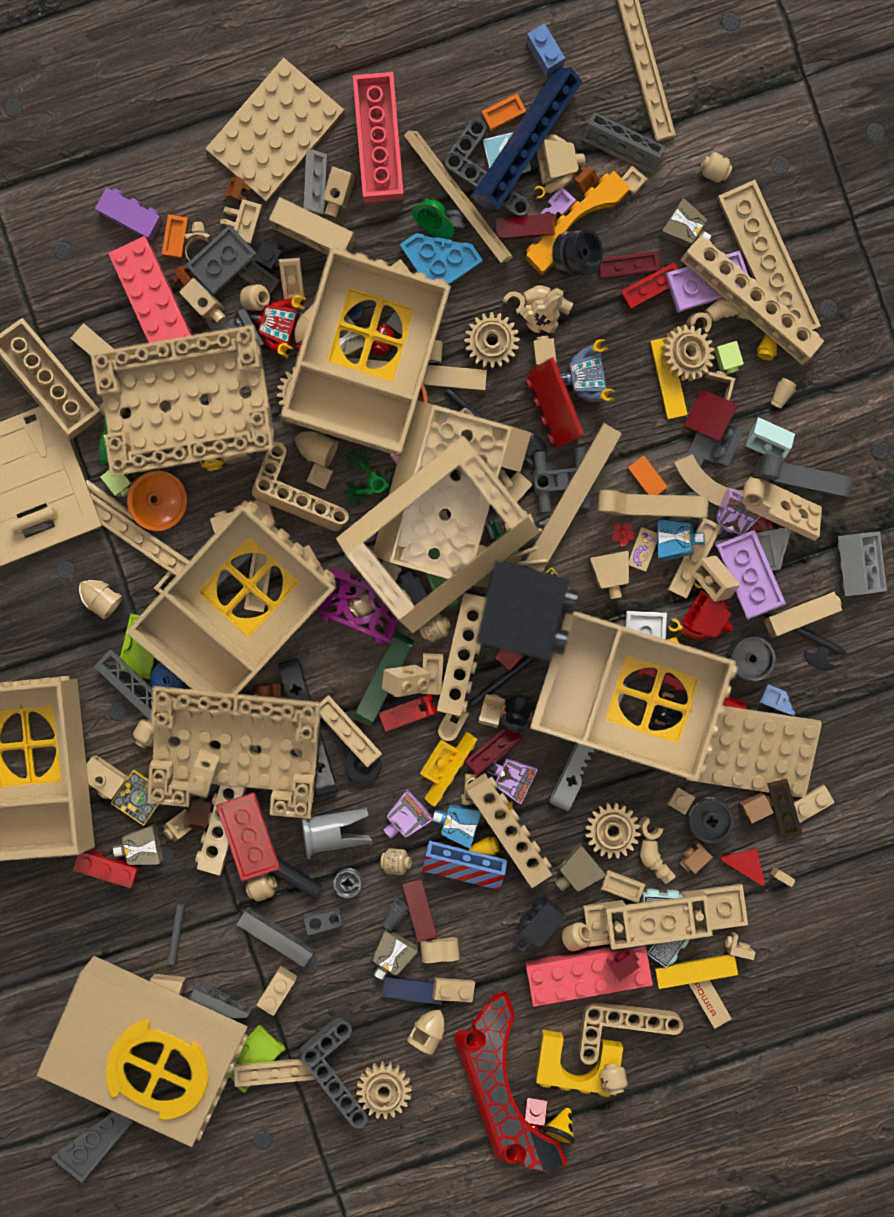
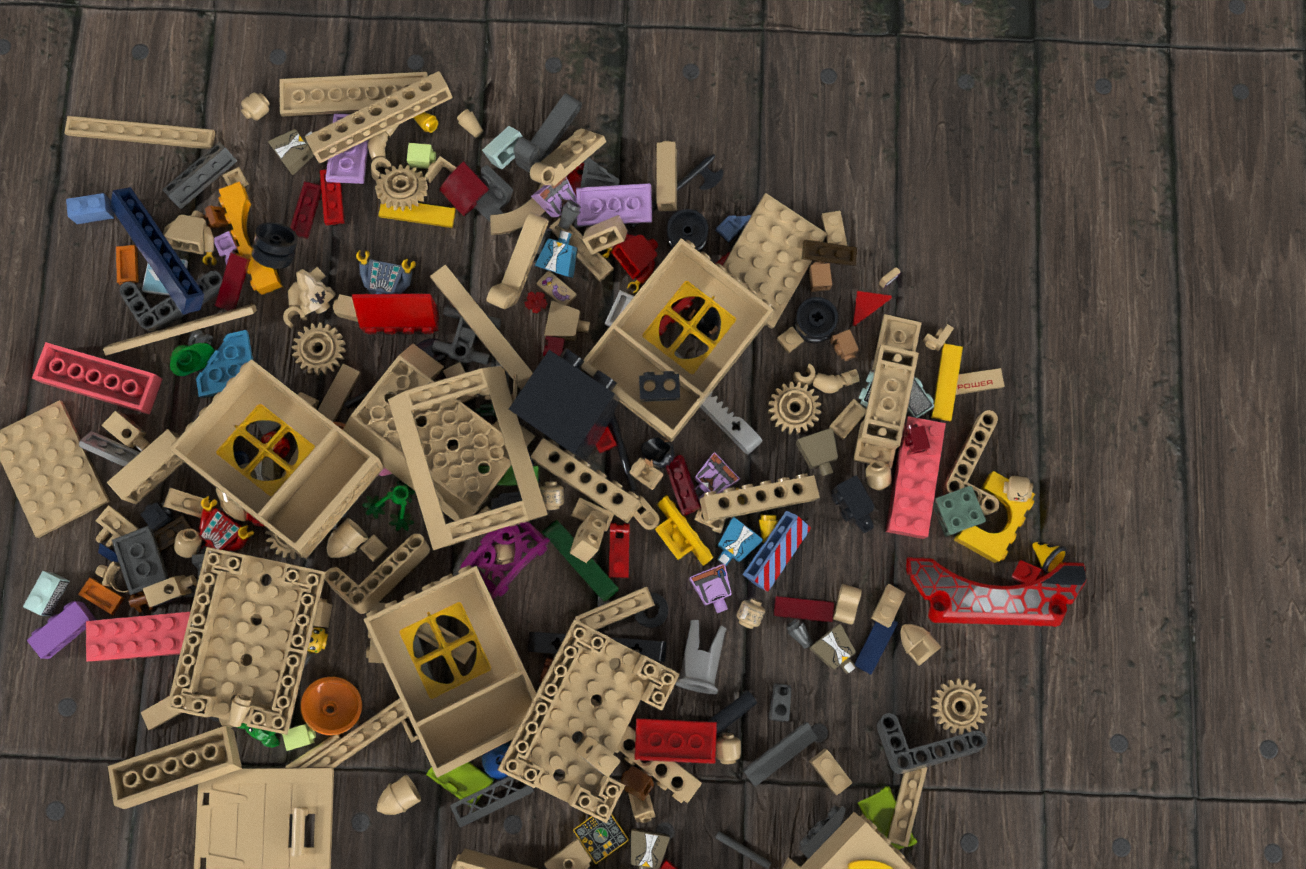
camera: 75 degrees left, 10 degrees down
(118, 421) = (239, 709): none -> tan cone
(144, 733) = (542, 802): tan head -> none
(156, 184) = (46, 593): none -> light aqua brick
(216, 225) = (107, 553): none -> dark blue sticker
(234, 189) = (83, 524): dark orange tile -> none
(354, 877) = (746, 668): dark grey wheel -> none
(570, 700) = (659, 392): none -> black brick
(570, 1027) = (958, 511): none -> sand green bracket
(579, 572) = (555, 344): none -> dark red brick
(647, 476) = (493, 262): orange tile -> none
(726, 534) = (569, 214): none -> dark grey cone
(862, 563) = (642, 113): light grey slope -> none

